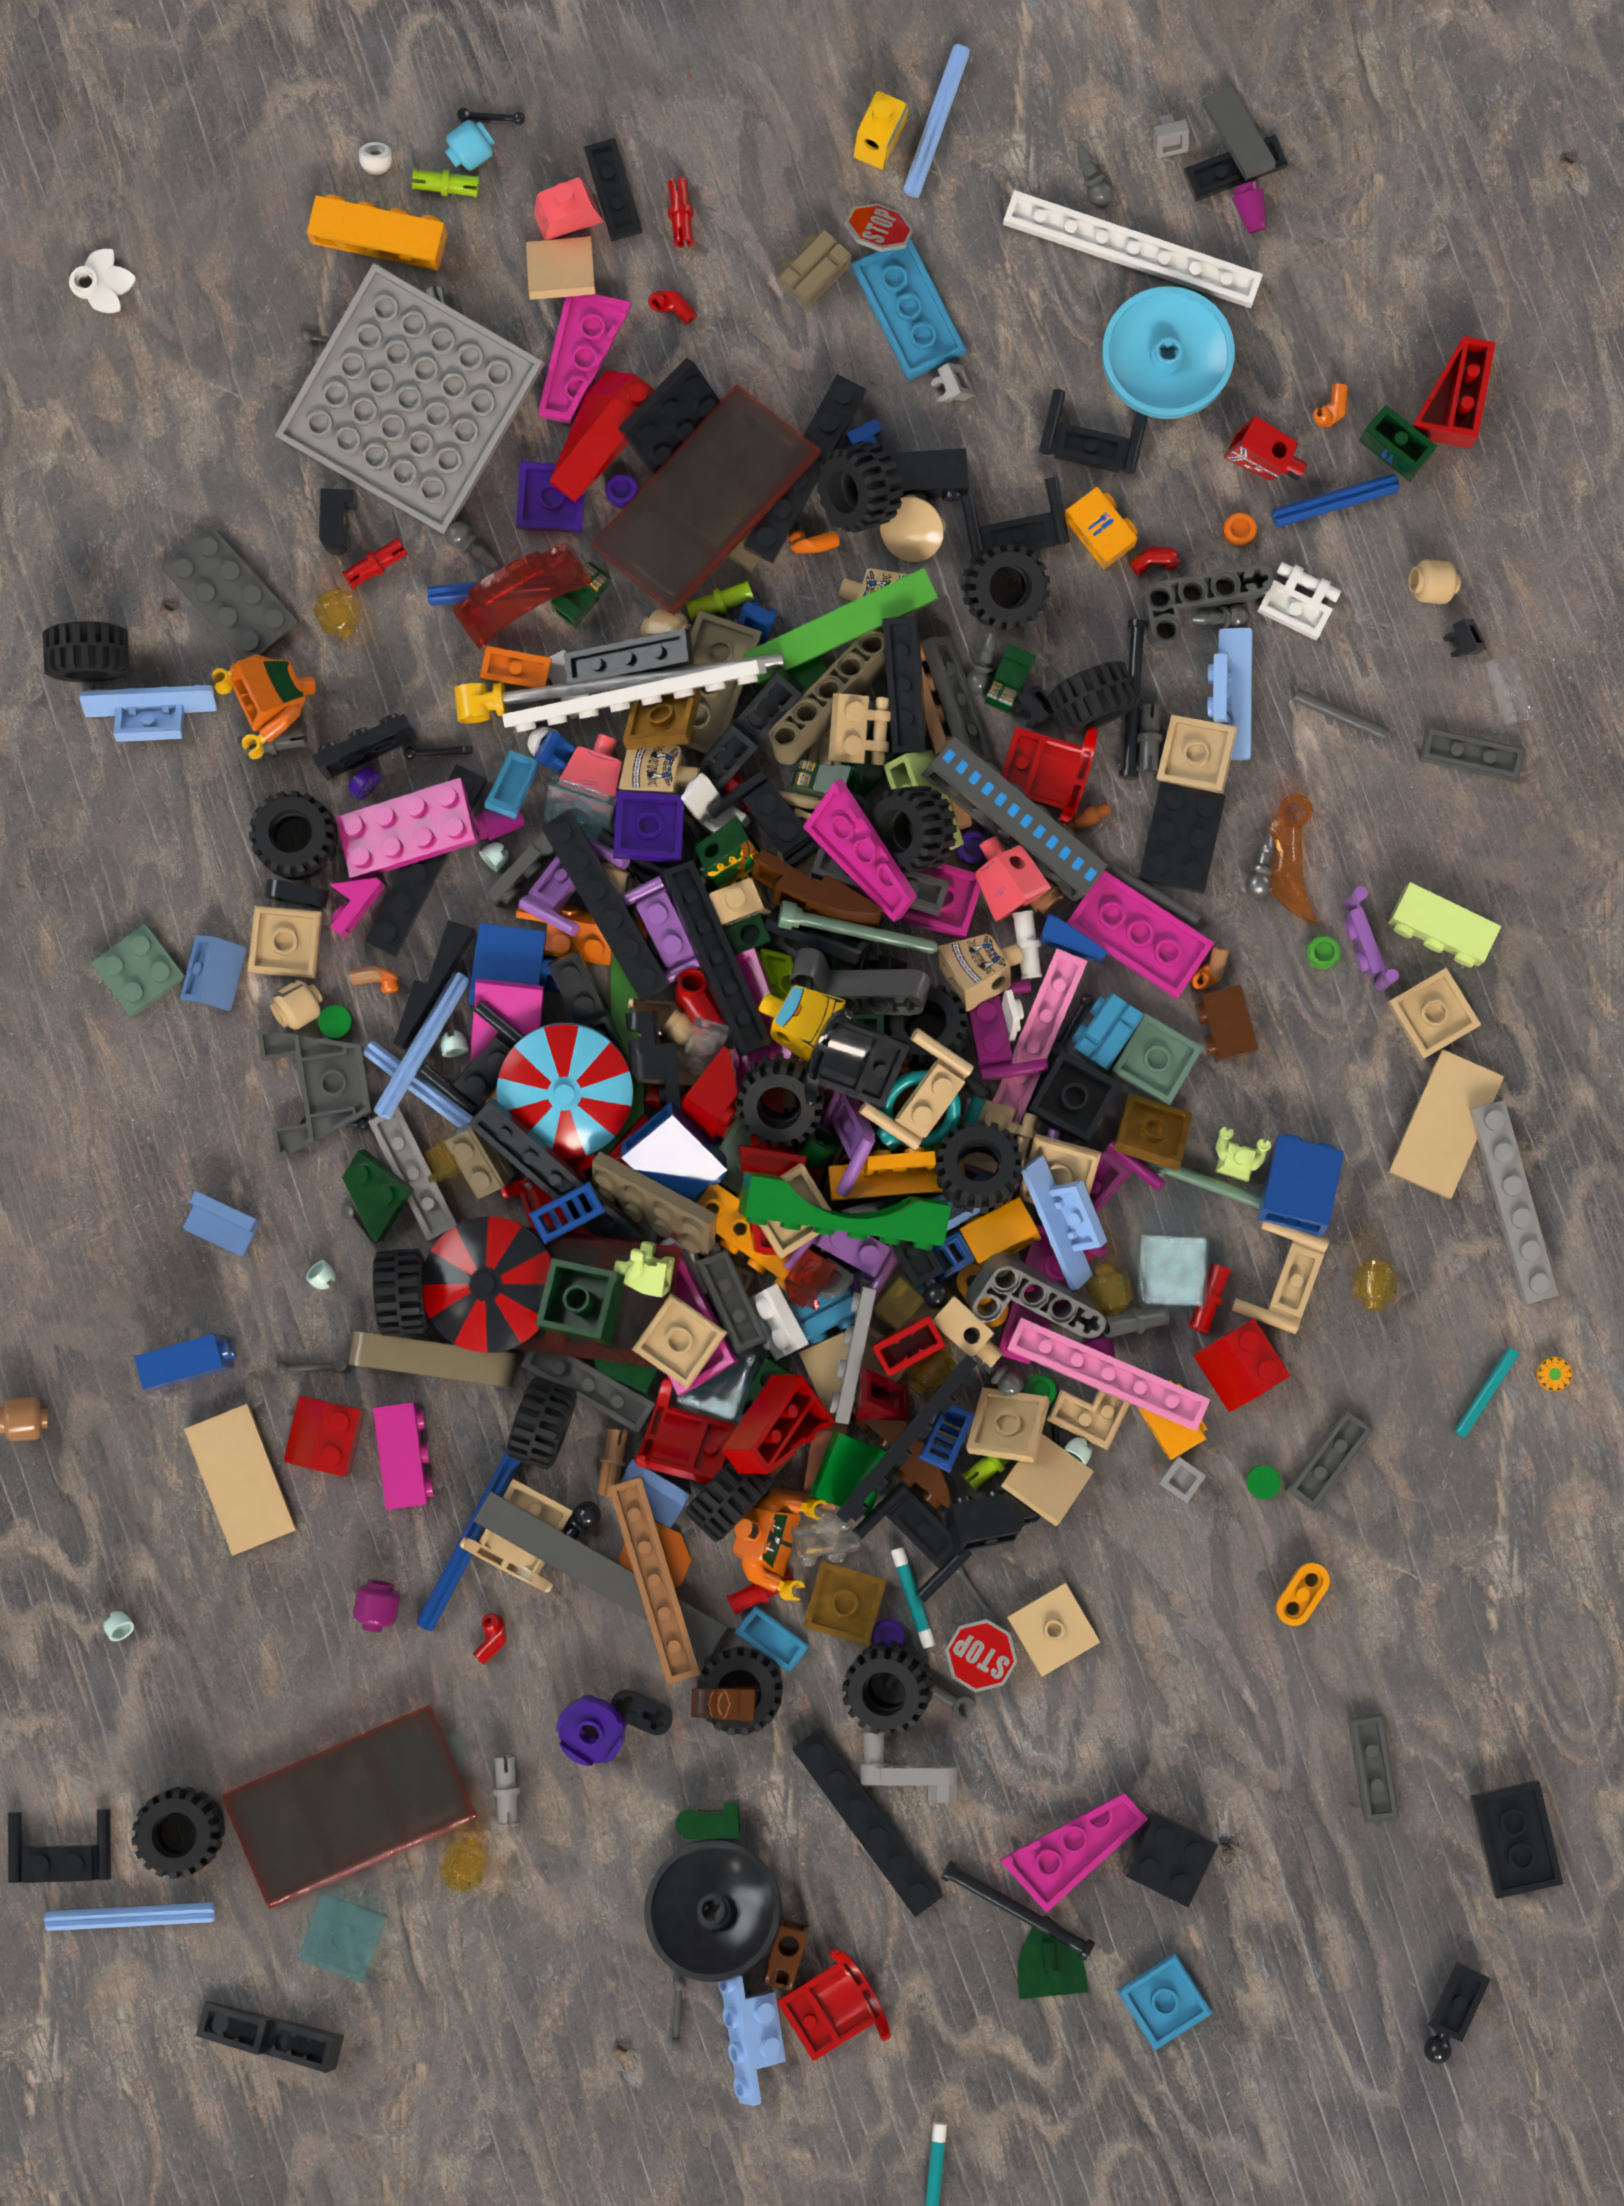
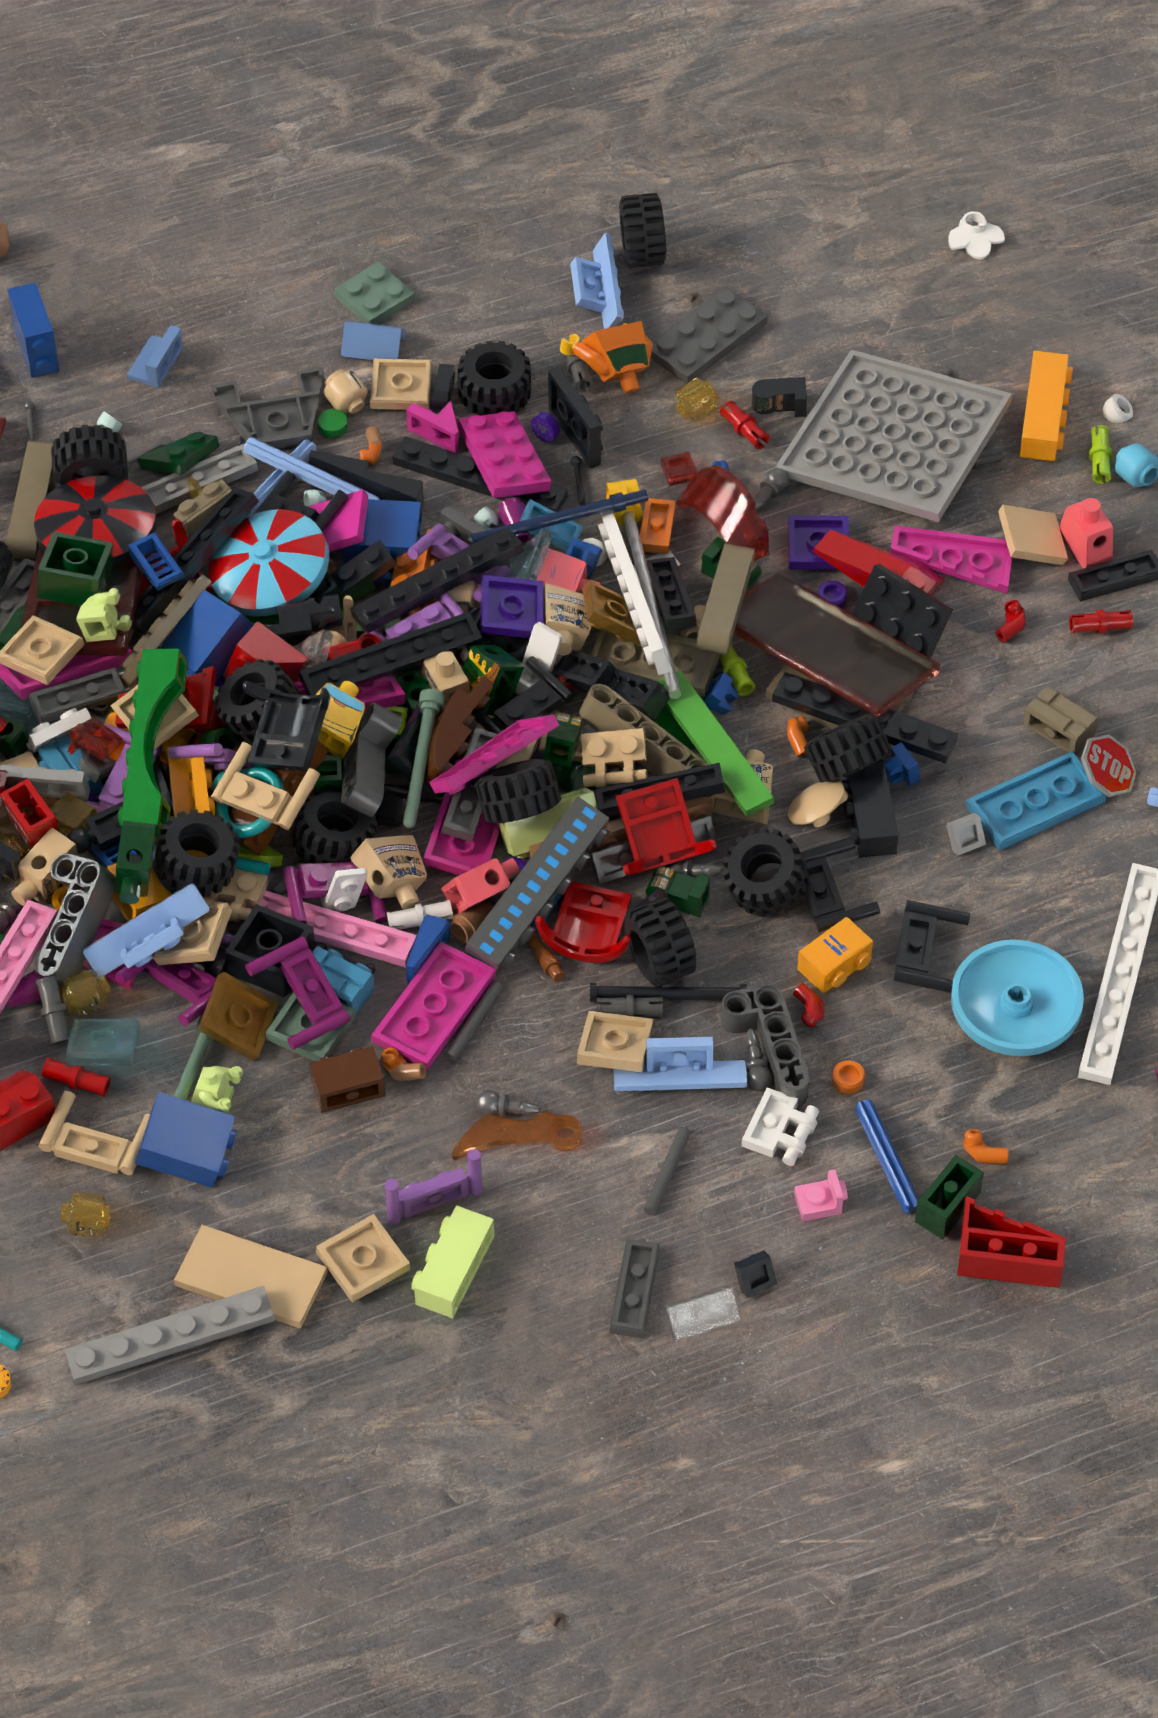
camera: 85 degrees right, 30 degrees down
(429, 641) = (678, 468): none -> clear red tile
(503, 706) = (616, 502): none -> dark blue bar
(659, 595) = (725, 598): none -> dark tan beam
(953, 688) = (658, 827): none -> red piece
(984, 1234) = (134, 870): none -> dark green torso
(1136, 1054) = (309, 987): none -> magenta plate
(1182, 837) = (532, 1040): black plate -> none
(1265, 451) = (927, 1081): red torso -> none
(1323, 952) = (423, 1164): bright green tile -> none
(1381, 568) = (821, 1198): none -> bright pink bracket
(1434, 581) = (810, 1240): tan head -> none

